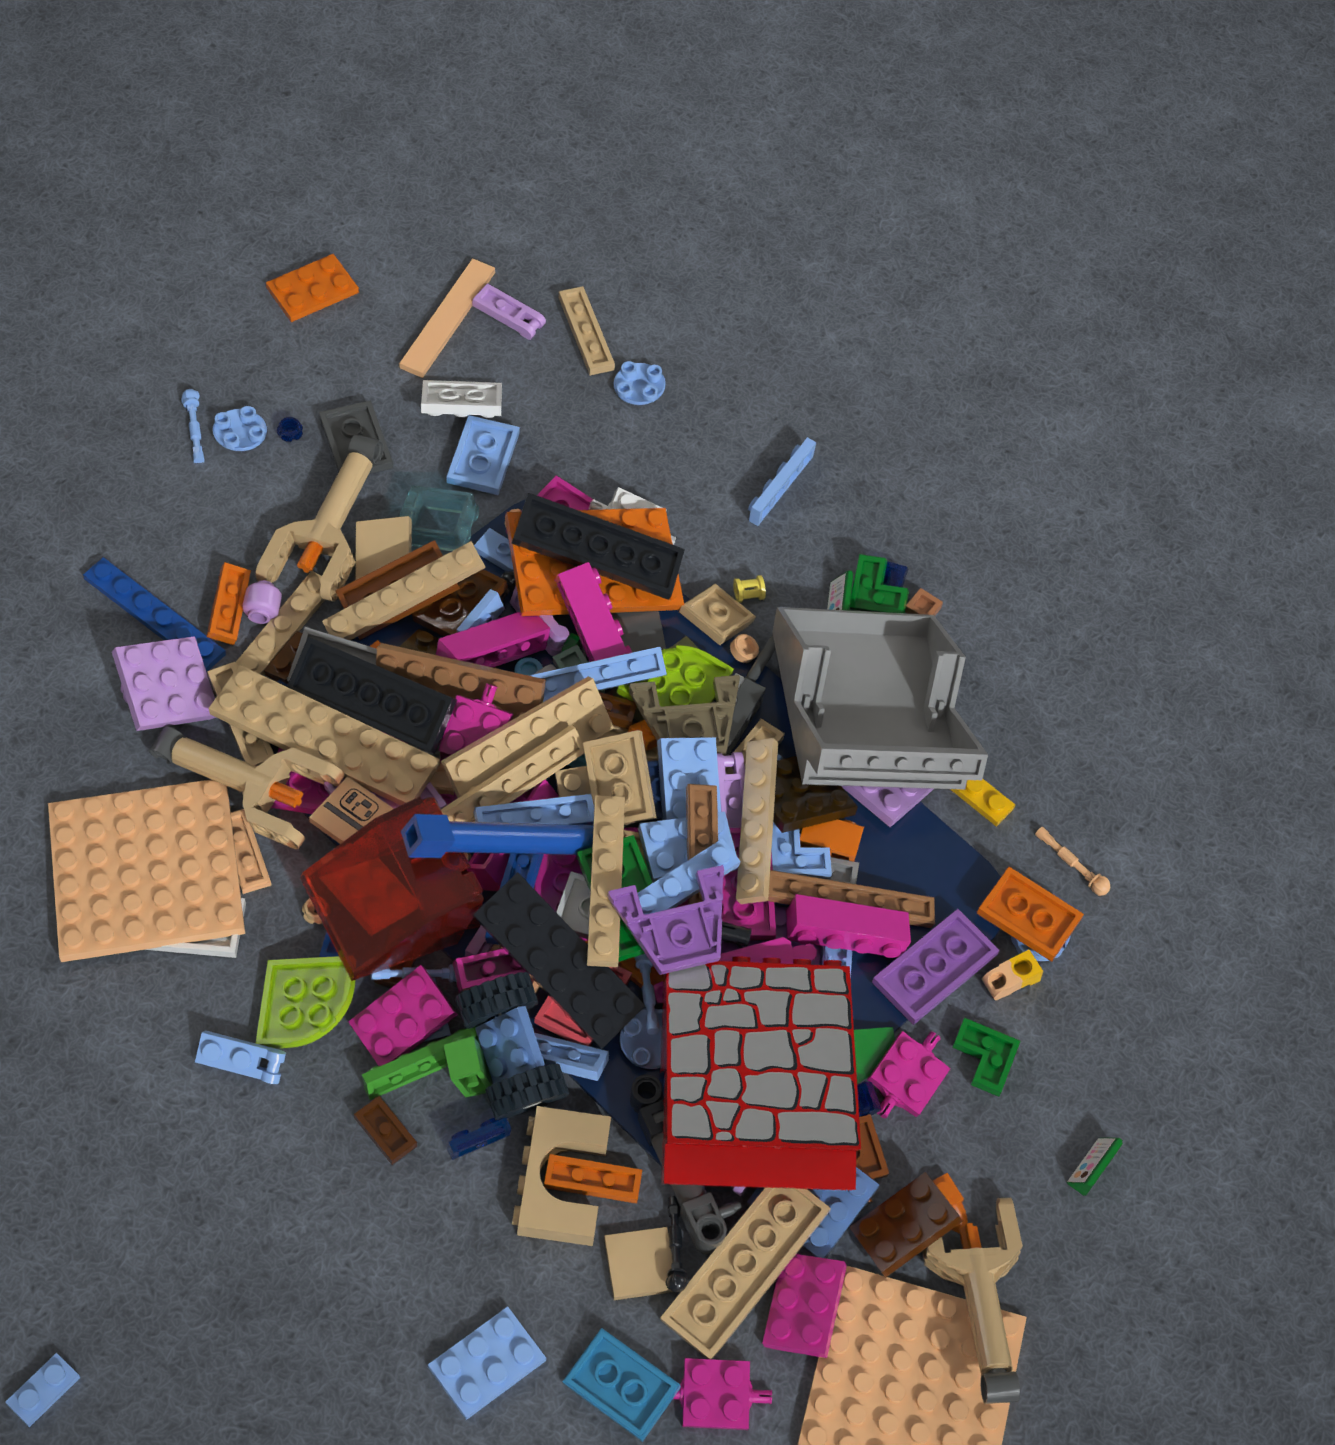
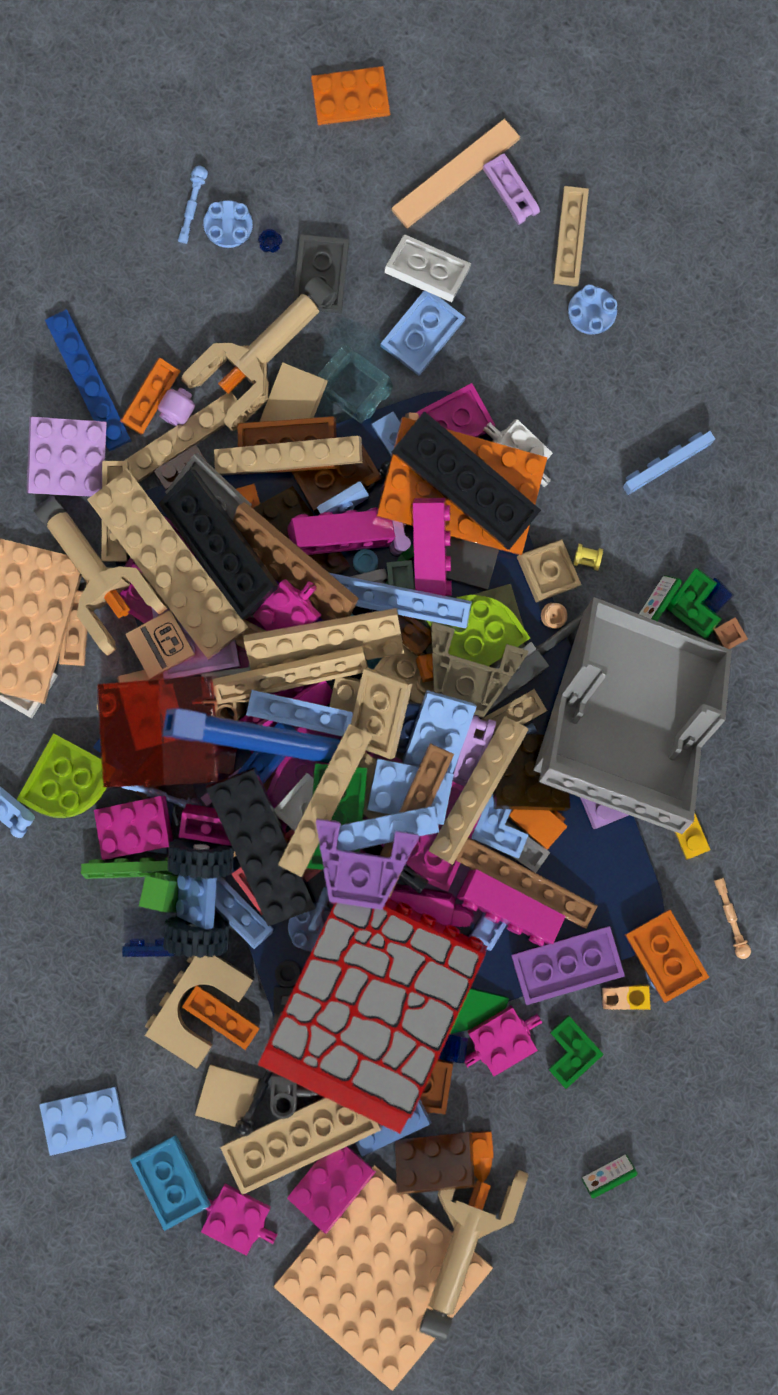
camera: 30 degrees right, 25 degrees up
(385, 1130) = (84, 910): reddish brown plate -> none

